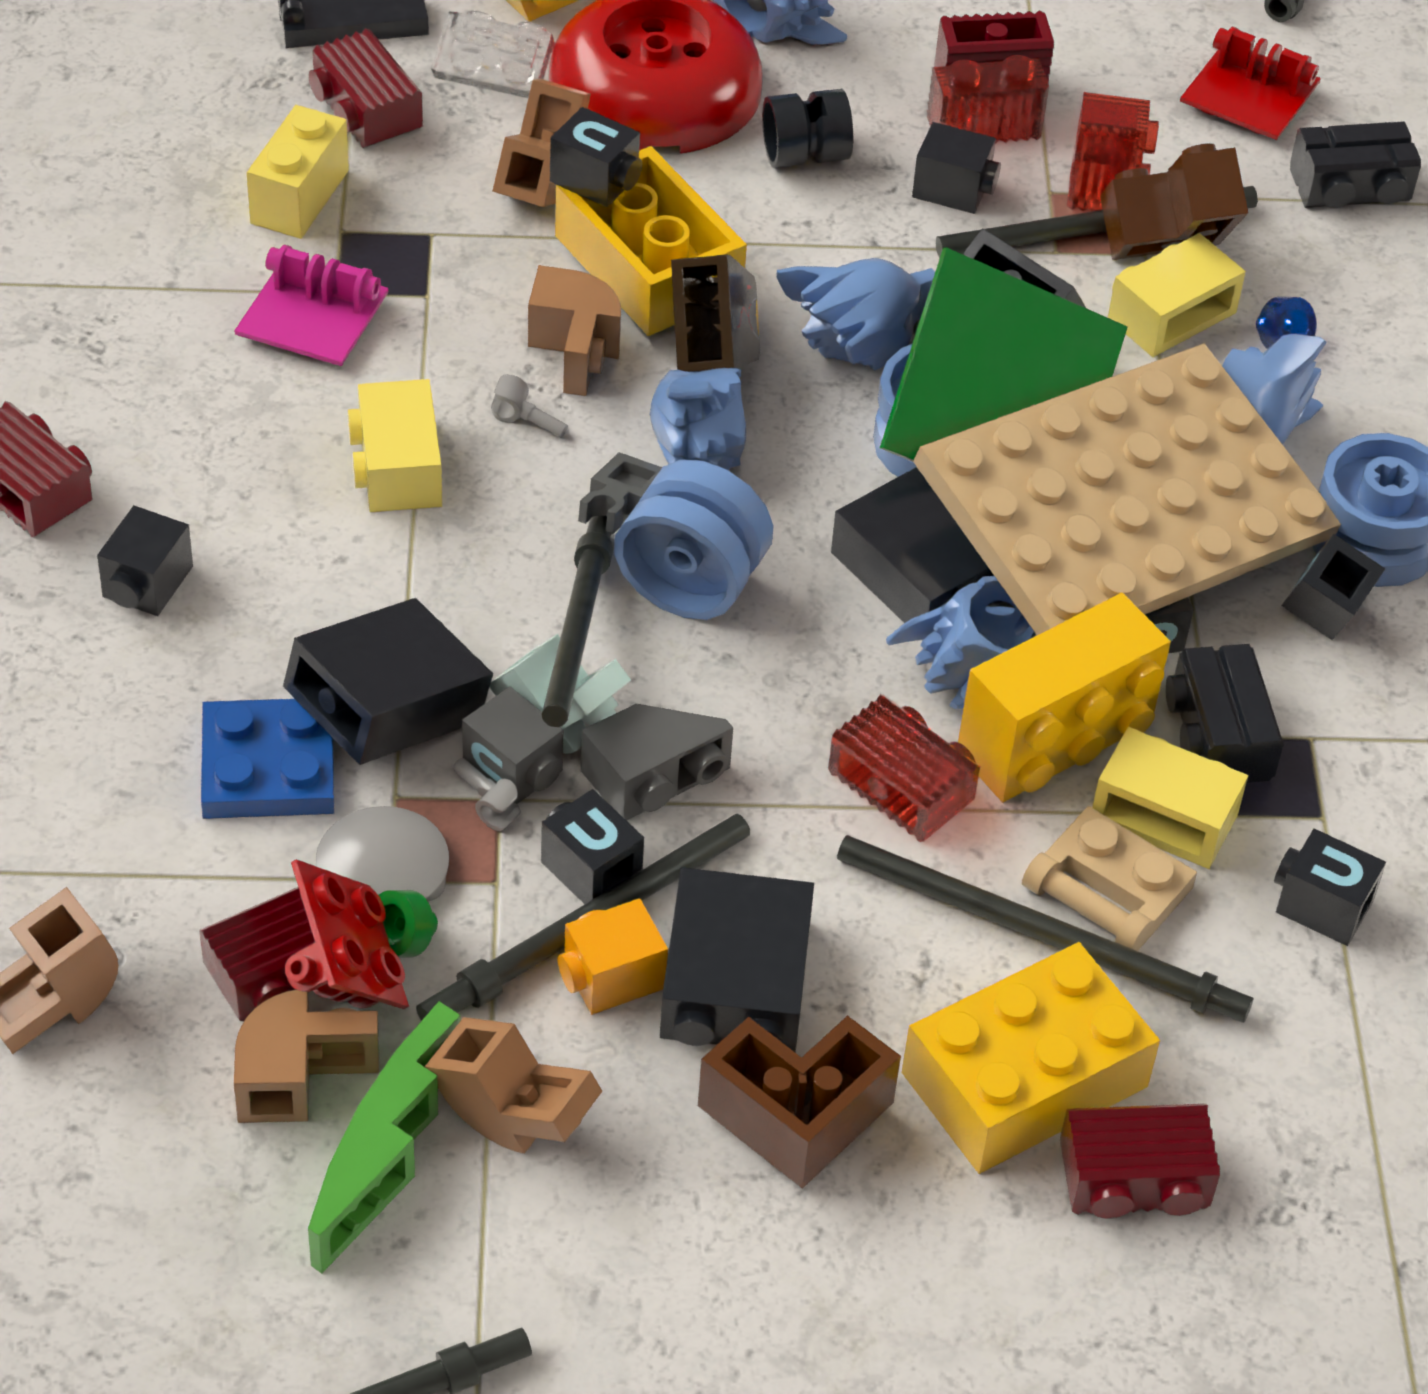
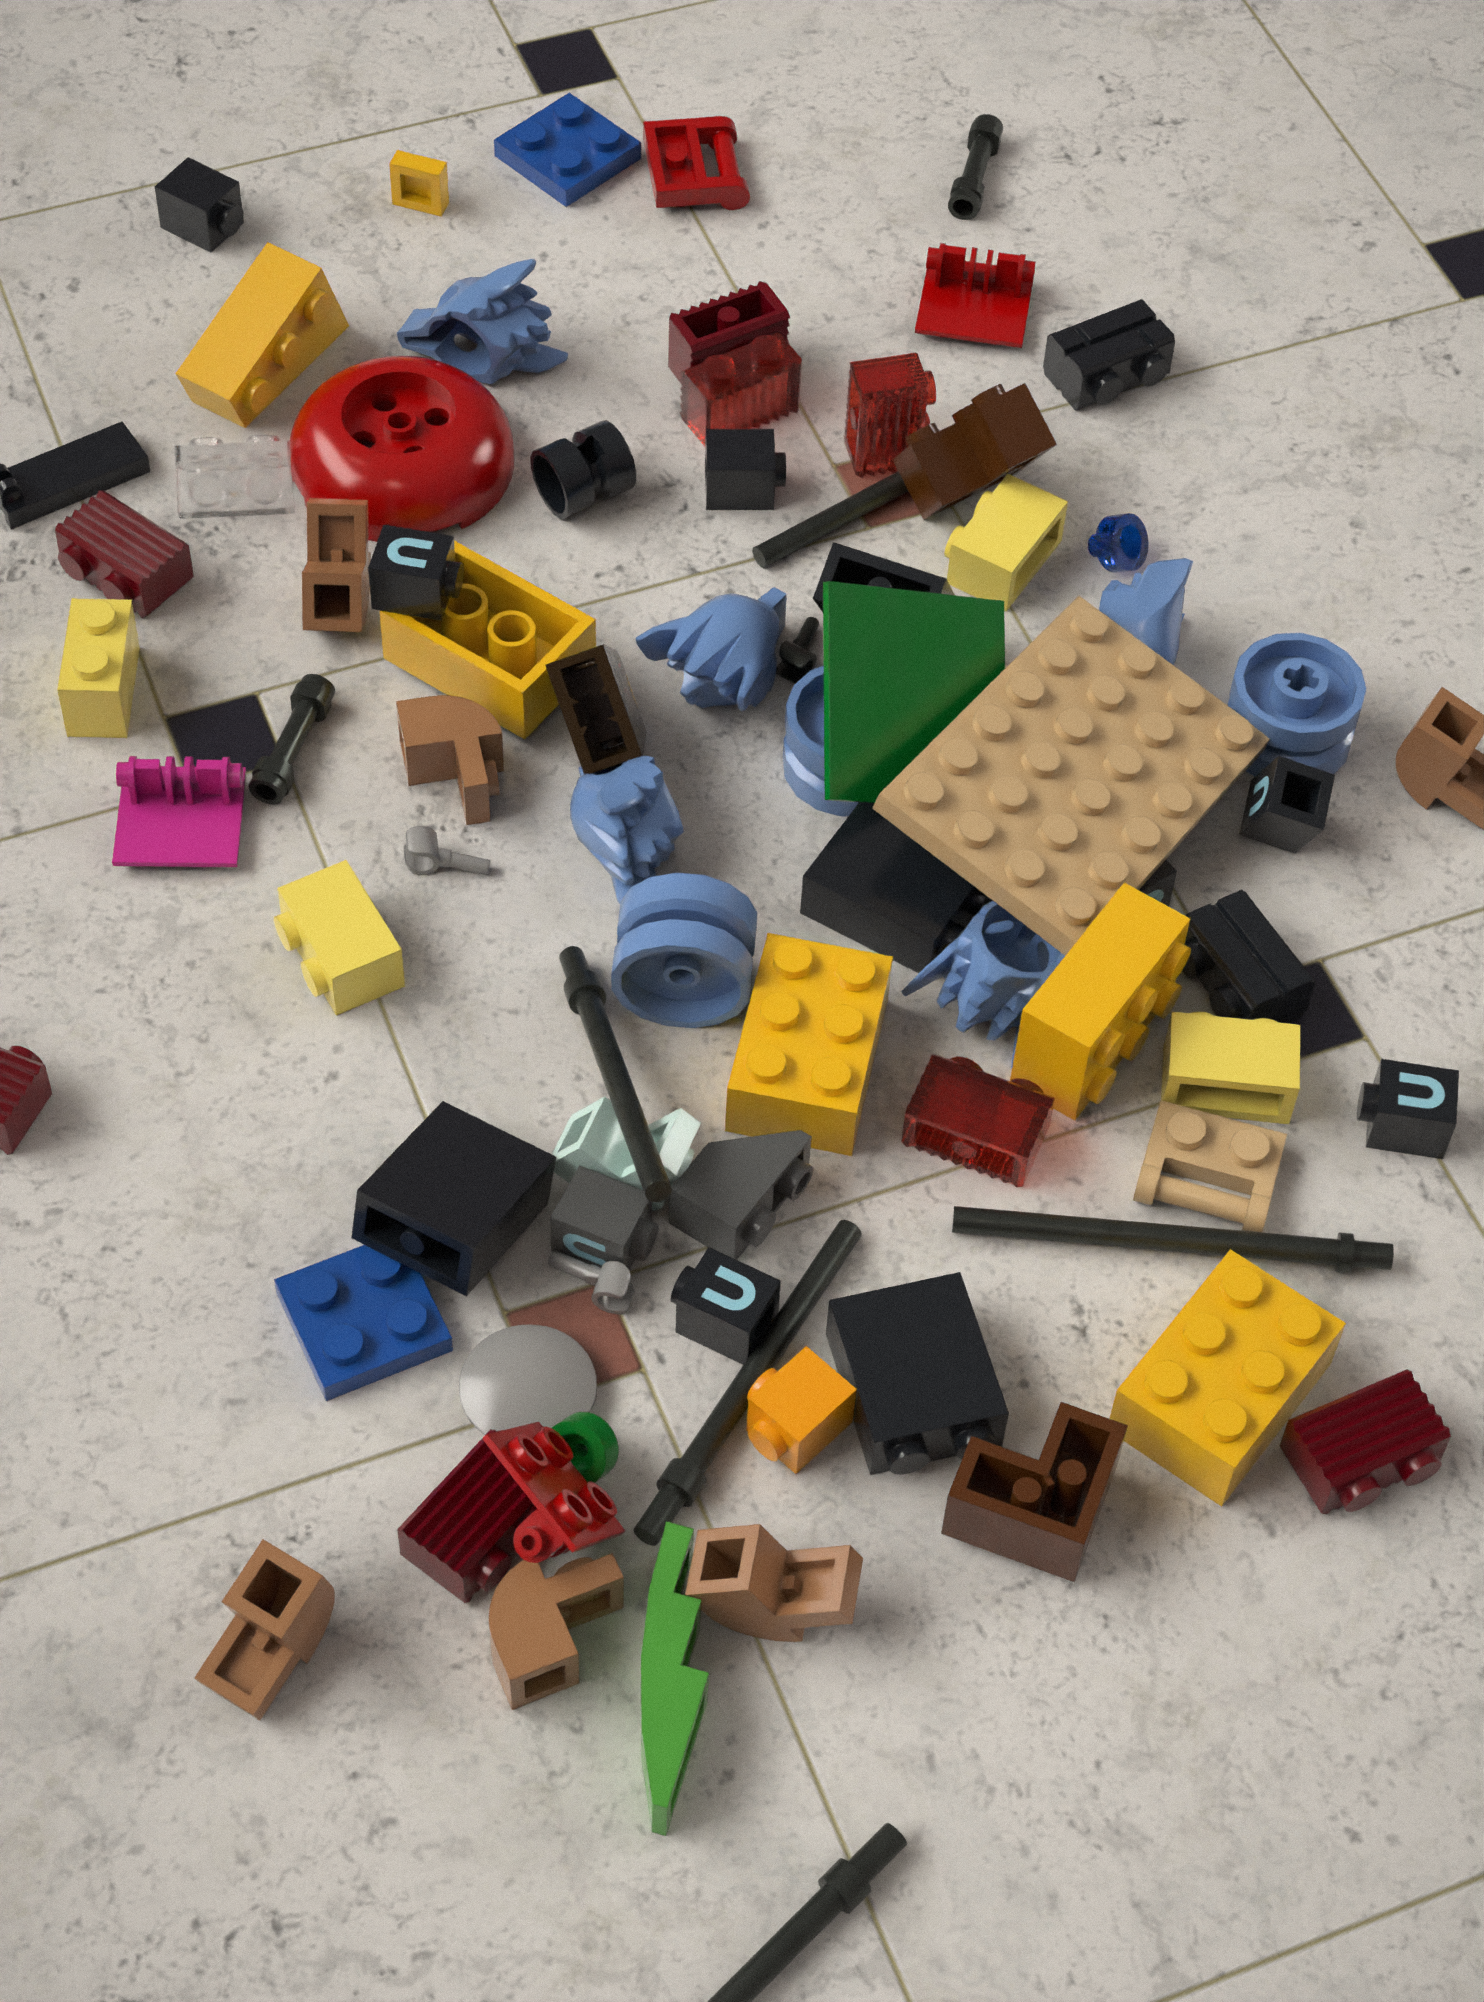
camera: 20 degrees left, 5 degrees up
(145, 560) = (145, 1147): black brick -> none
(409, 301) = (274, 774): none -> pearl dark grey bar
(617, 490) = (581, 913): dark grey plate -> none
(777, 654) = (808, 1042): none -> yellow brick

